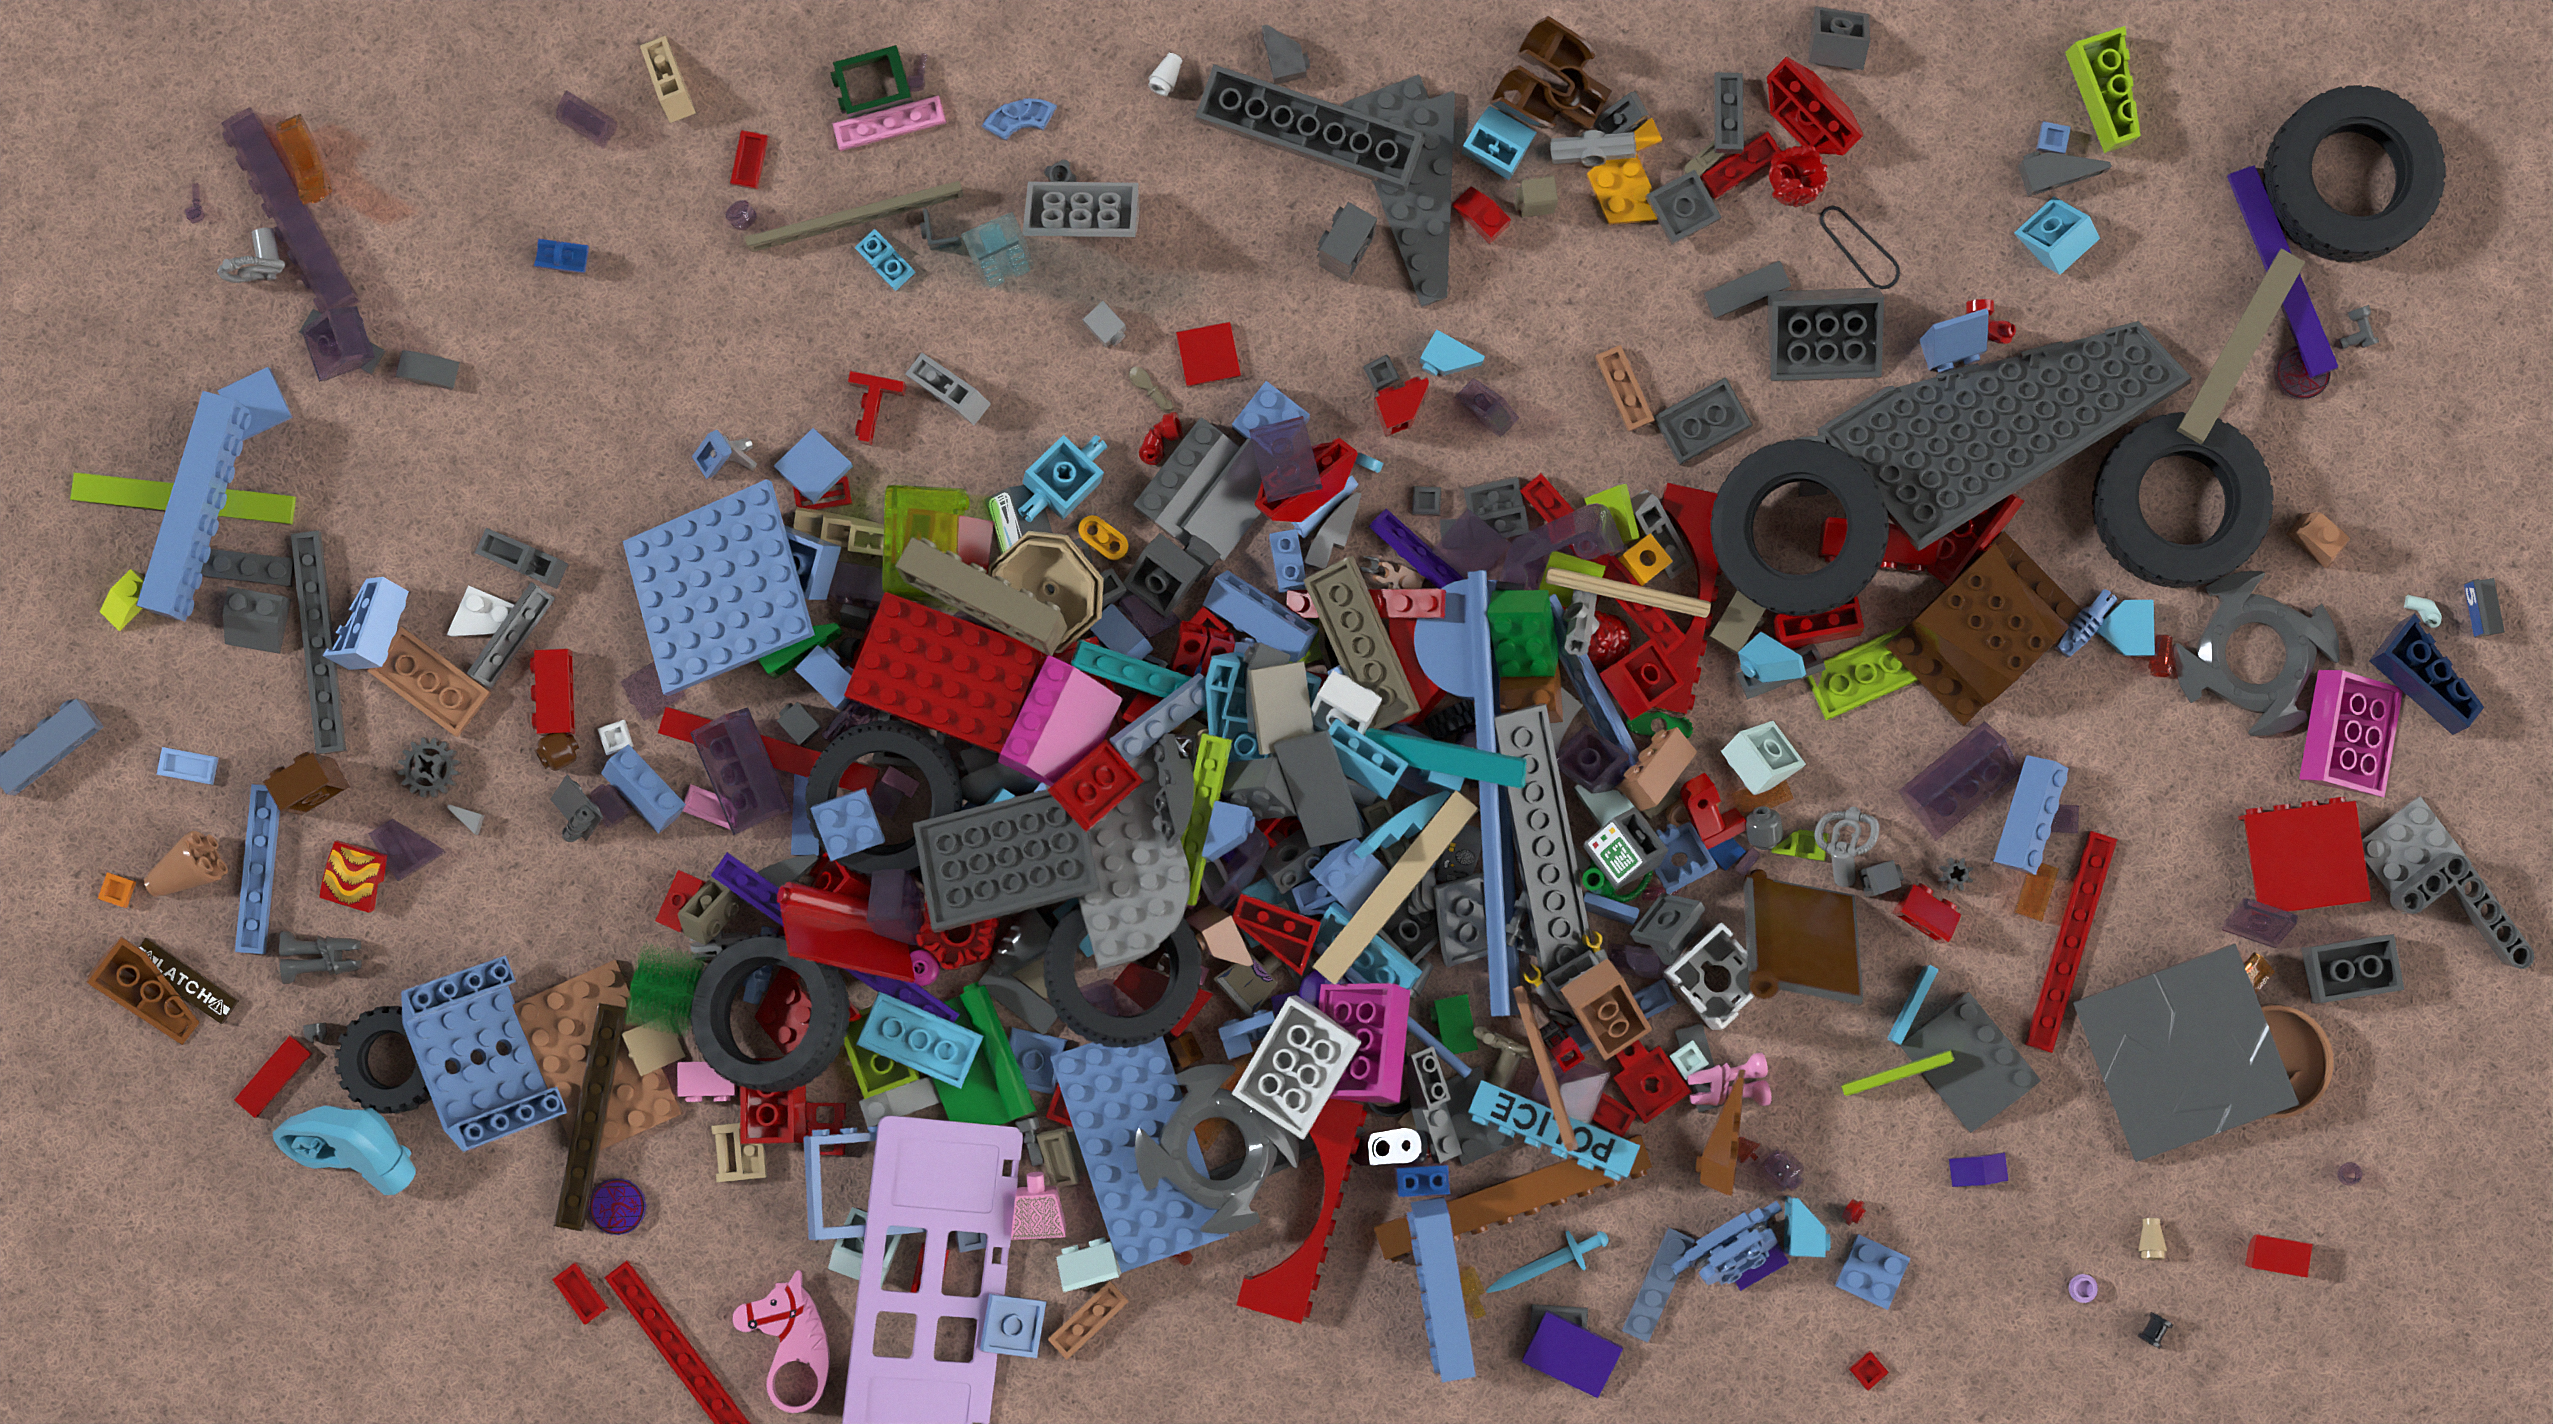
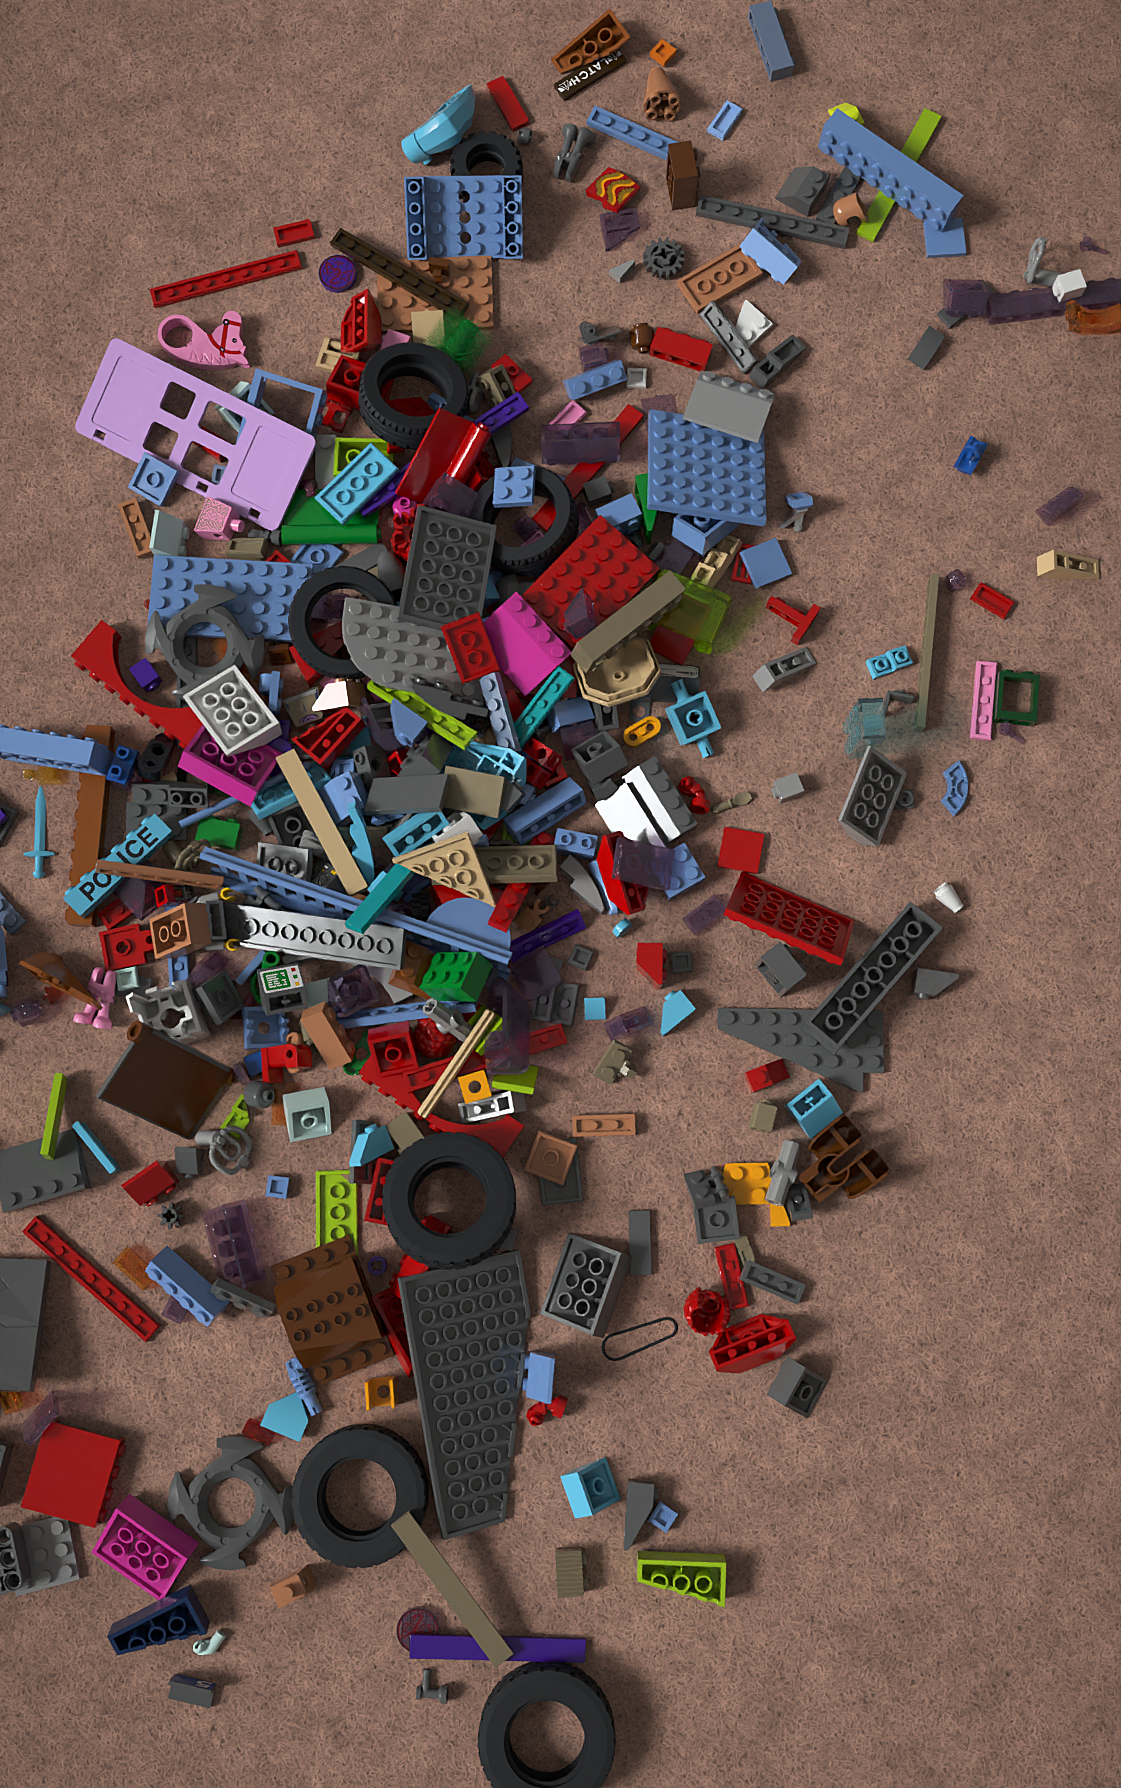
camera: 115 degrees right, 5 degrees down
(266, 543) = (849, 207): none -> nougat helmet
(276, 209) = (1069, 285): none -> white brick
(563, 1062) = (439, 268): none -> reddish brown tile
(618, 592) = (729, 406): none -> light grey slope
(688, 1137) = (361, 324): none -> red wedge
(943, 1107) = (310, 486): none -> clear pink arm
(998, 659) = (580, 615): none -> clear purple slope
(1278, 254) = (790, 918): none -> red plate
(1285, 1214) = (146, 675): none -> dark purple brick
(1310, 367) = (704, 914): none -> clear purple plate
(1388, 692) = (451, 864): none -> tan tile
(1484, 457) = (594, 1008): none -> medium azure slope
(1543, 403) = (615, 1063): none -> dark tan hinge
(1656, 239) = (699, 1187): none -> dark grey plate
(1691, 436) = (550, 1158): none -> nougat tile
(1865, 757) = (277, 1187): none -> medium blue plate
(1915, 593) = (377, 1272): none -> dark purple bush
(2017, 739) = (242, 1298): none -> dark grey plate
(2056, 513) = (372, 1397): none -> light orange piece
(2162, 220) = (570, 1572): none -> dark tan brick

